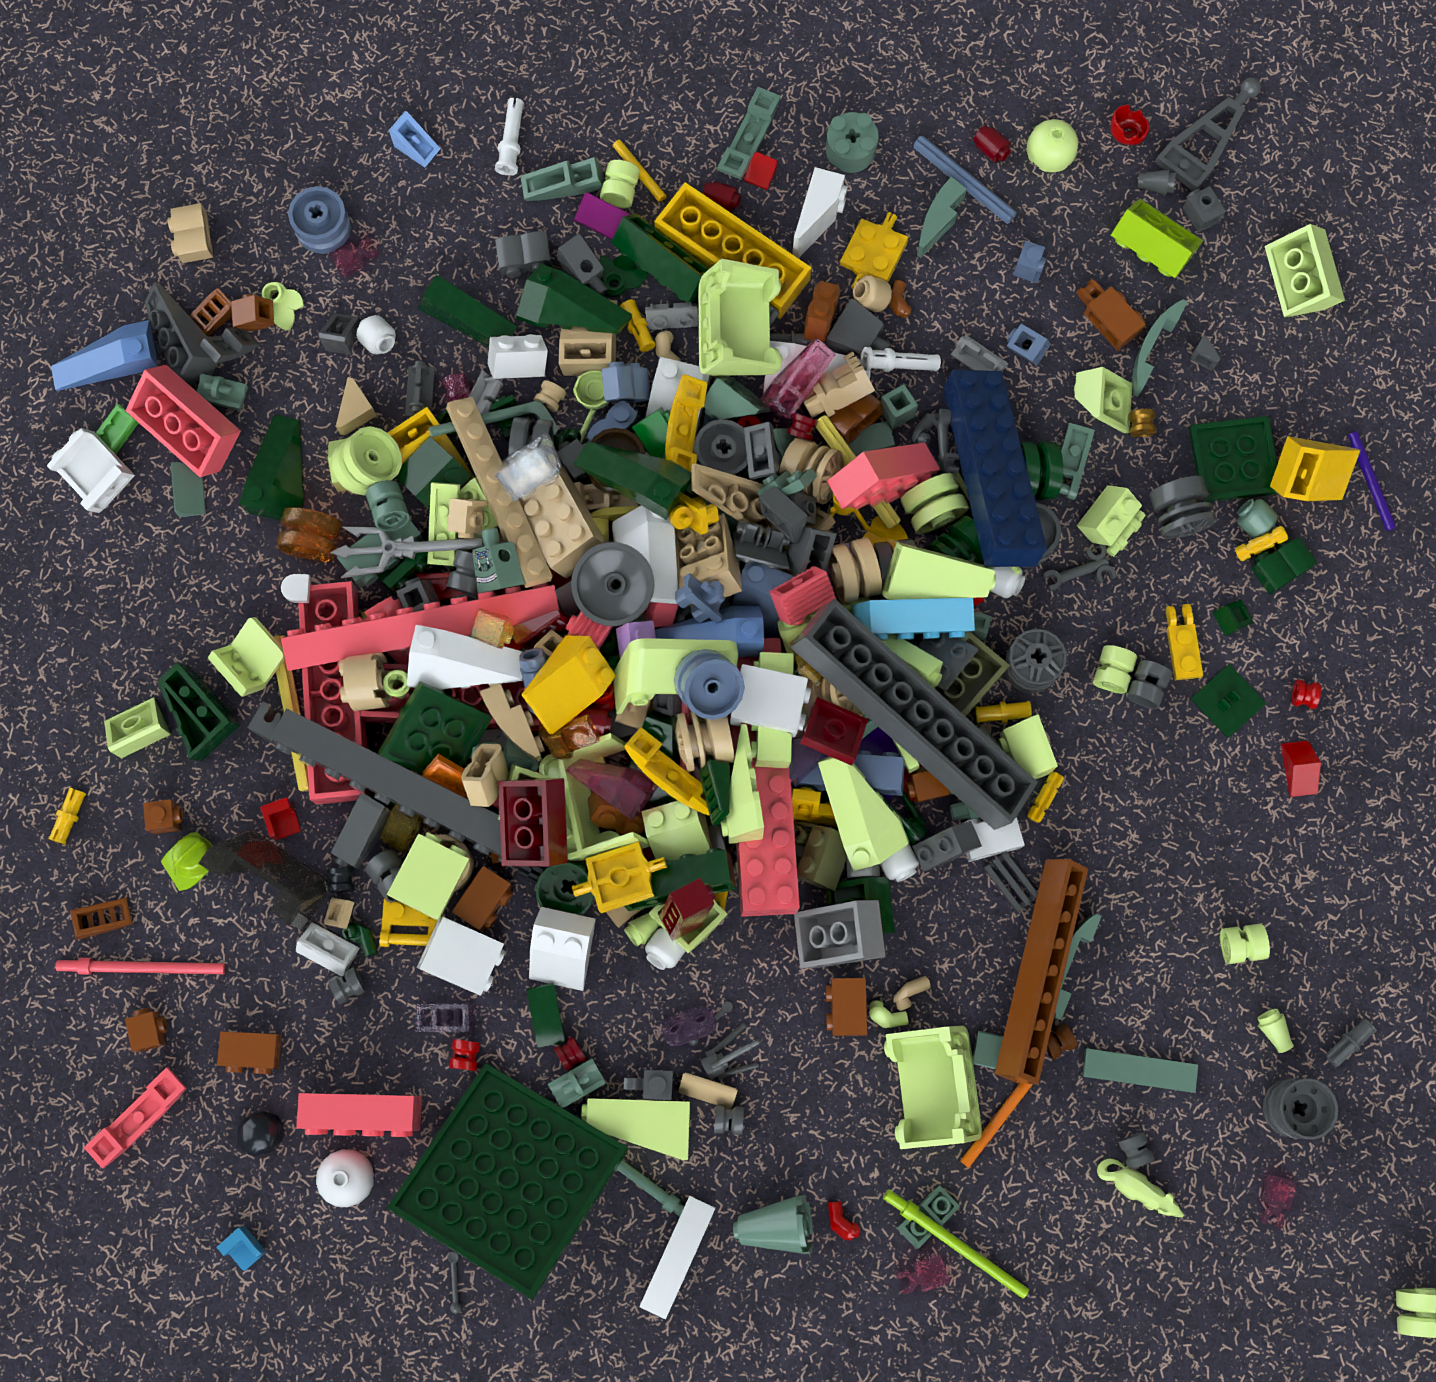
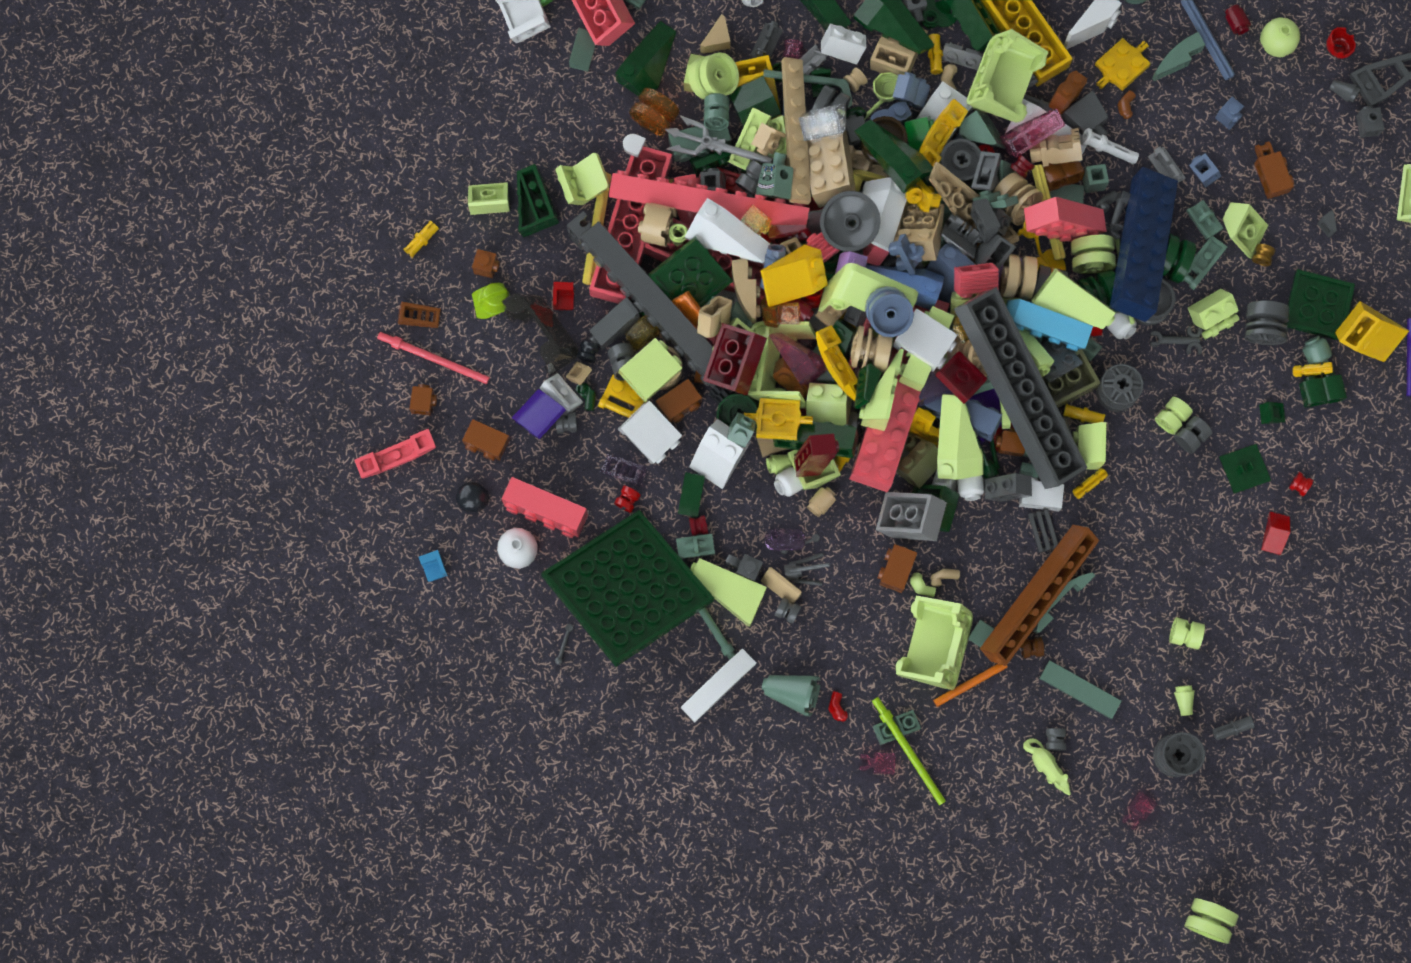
camera: 20 degrees right, 0 degrees up
(306, 989) = (538, 414): none -> dark purple slope
(577, 912) = (741, 429): none -> sand green brick
(716, 957) = (821, 501): none -> tan brick
(872, 293) = (1109, 93): tan head -> none
(1053, 406) = (1204, 219): none -> sand green hips
(1142, 369) = (1310, 190): sand green slope -> none
(1156, 238) = (1327, 130): lime slope -> none
(1183, 645) = (1229, 418): yellow hinge -> none

